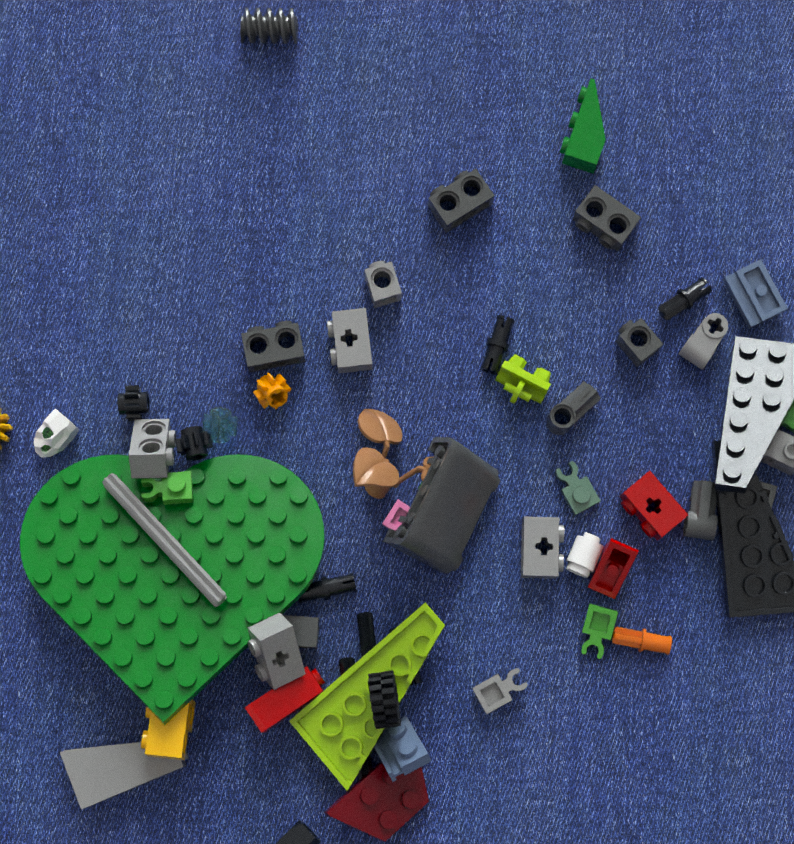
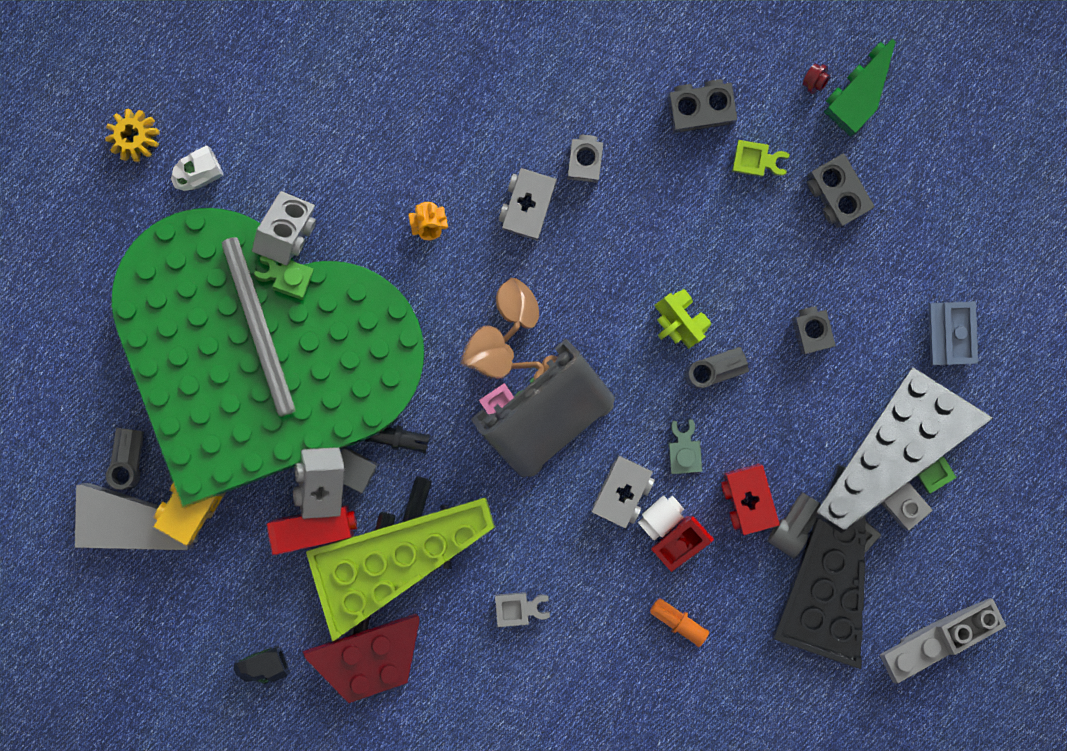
camera: 25 degrees right, 10 degrees up
(92, 708) = (126, 454): none -> dark grey piece
(133, 402) = (286, 173): black gear -> none
(194, 443) = (328, 240): black gear -> none
(220, 424) = (362, 233): clear light blue gear -> none
(274, 355) = (446, 184): dark grey brick -> none
(384, 699) = (402, 576): black tyre -> none
(401, 749) = (401, 624): sand blue plate -> none
(497, 345) = (672, 271): black pin -> none
(523, 224) = (753, 158): none -> lime plate
(543, 137) = (816, 78): none -> dark red plate
(599, 625) = (644, 591): bright green plate -> none
(684, 299) = (879, 307): black axle -> none
(703, 343) = (875, 362): light grey piece -> none

